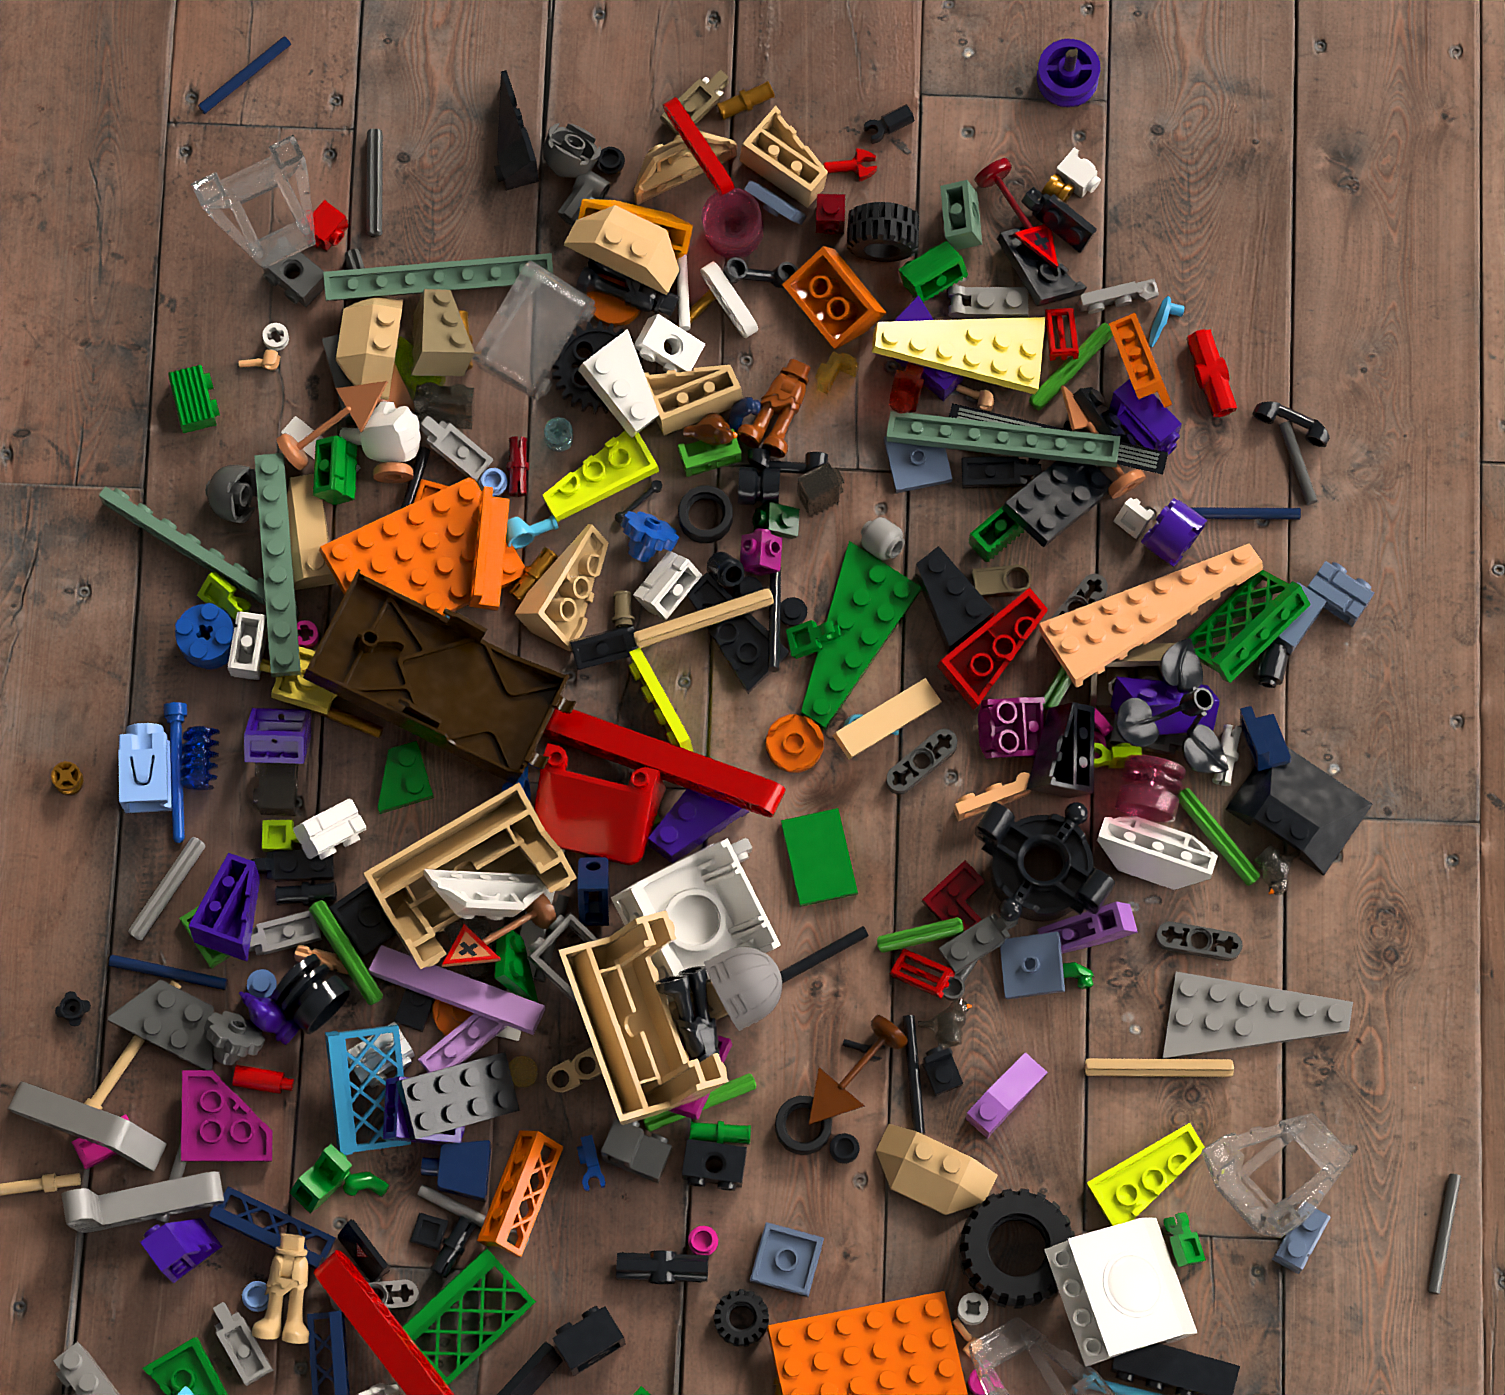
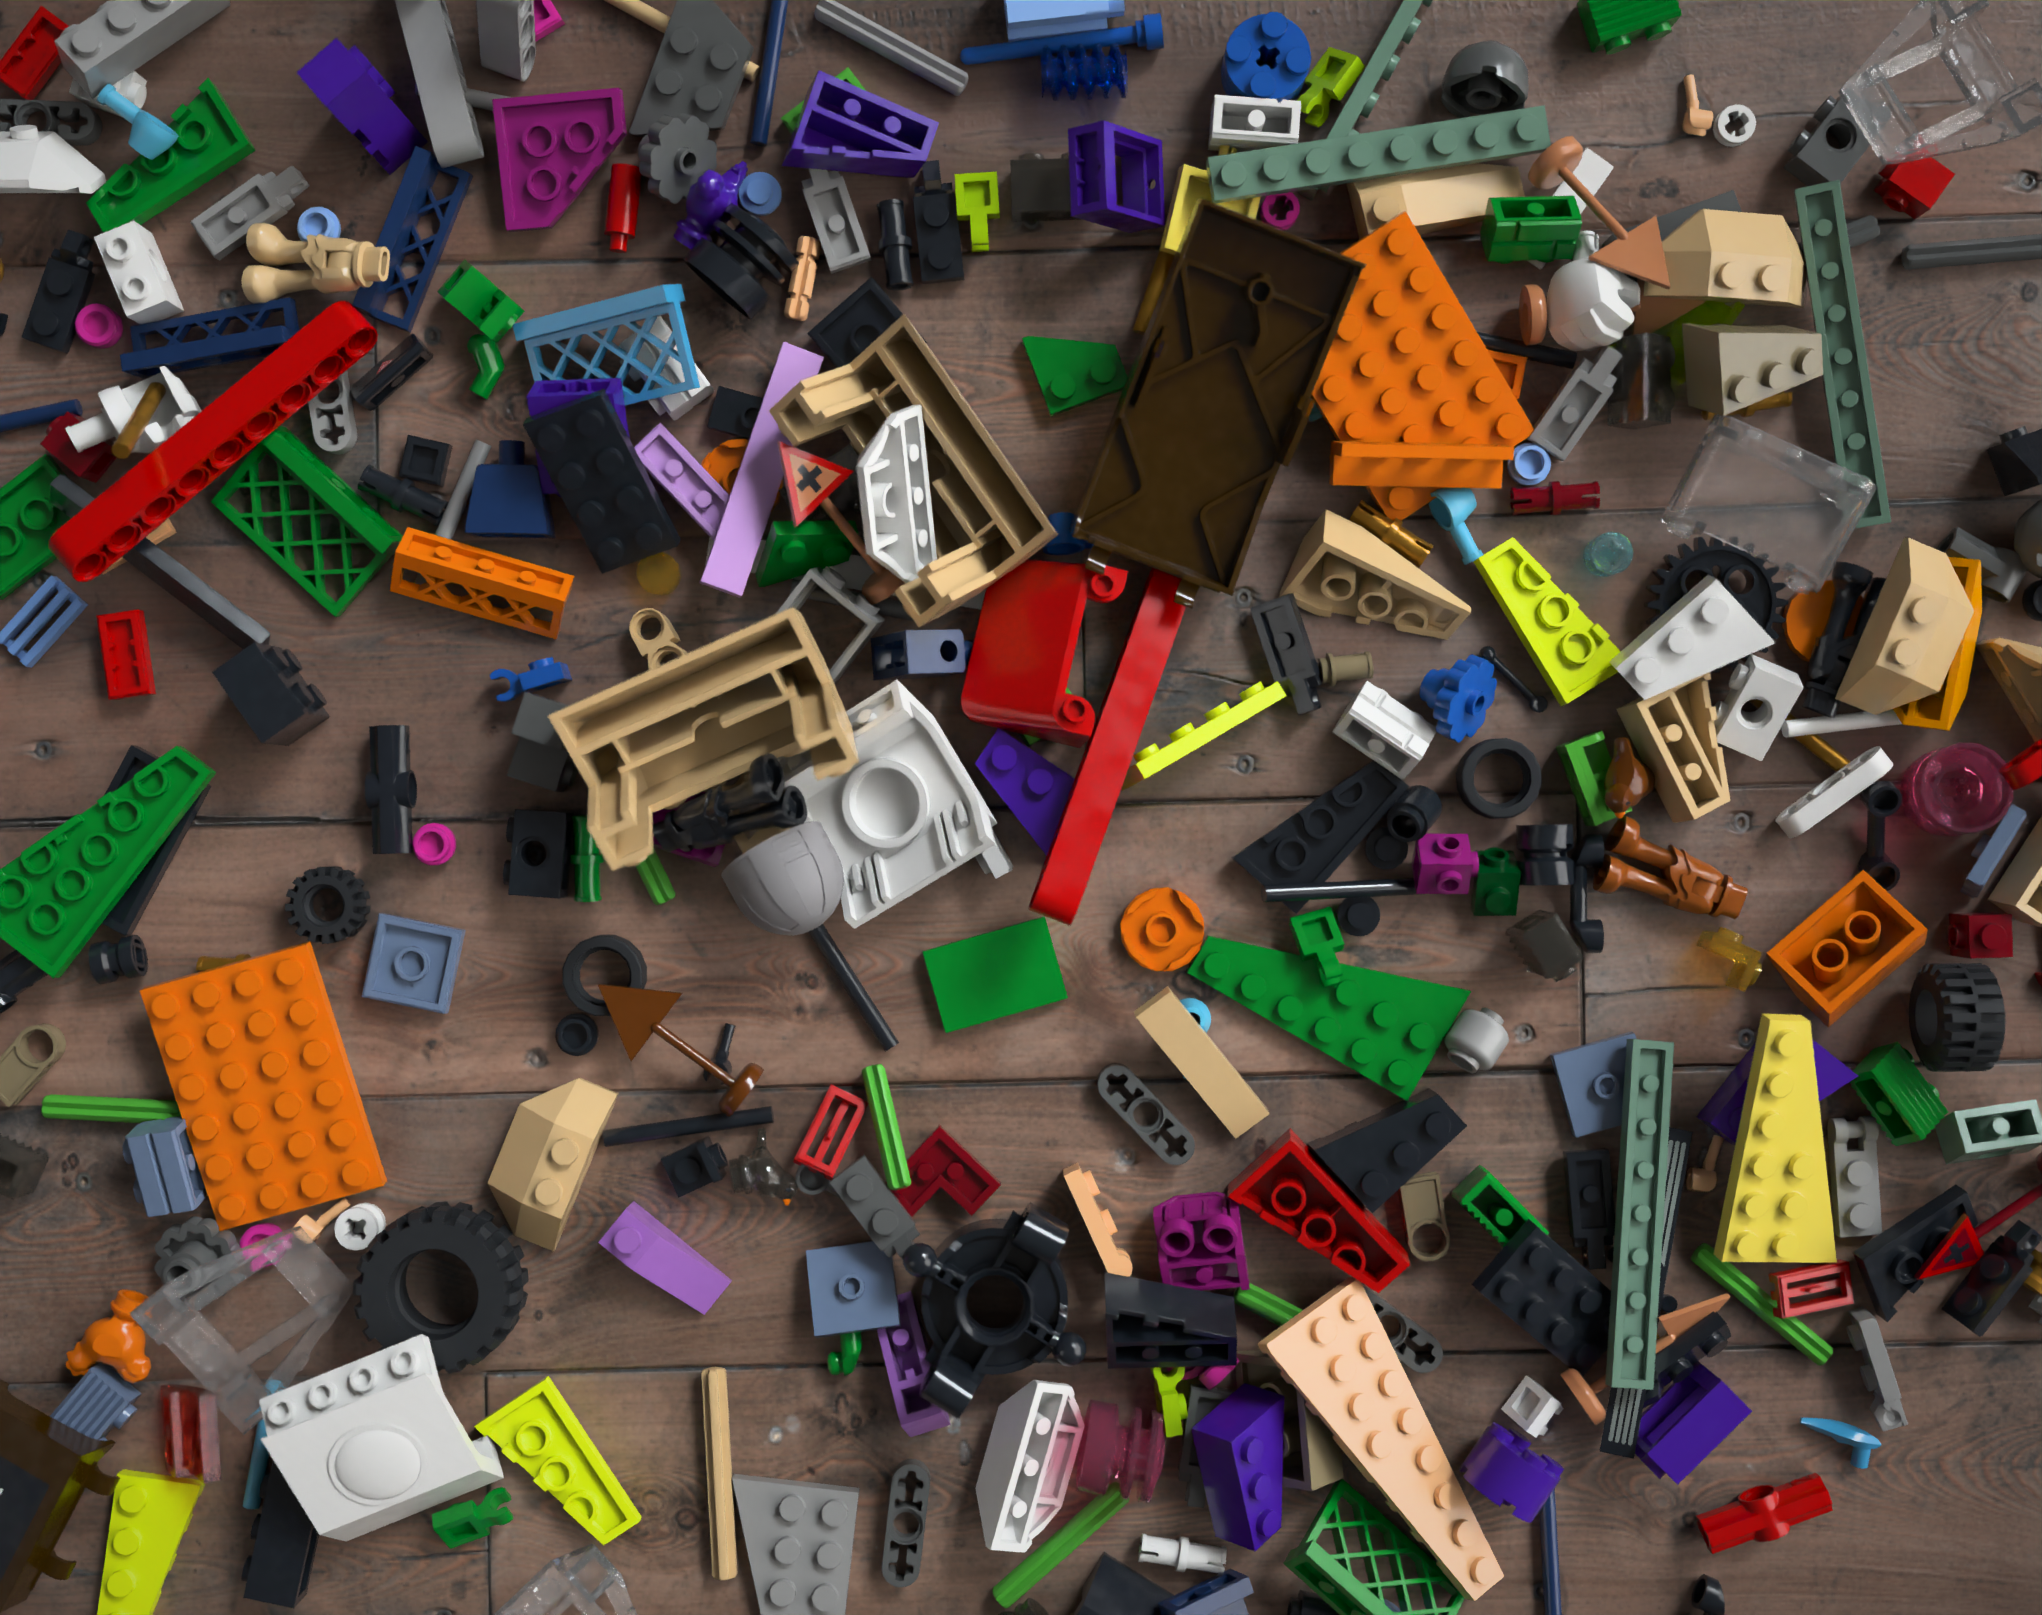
camera: 85 degrees right, 15 degrees up
(330, 828) = (984, 268): white brick -> none
(346, 952) = (808, 307): bright green axle -> none
(703, 618) = (1336, 786): tan axle -> none
(742, 409) = (1662, 821): dark blue arm -> none
(907, 389) = (1709, 1065): clear red hips -> none
(1138, 358) = (1776, 1415): orange fence -> none
(1181, 669) = (1179, 1525): black plant -> none

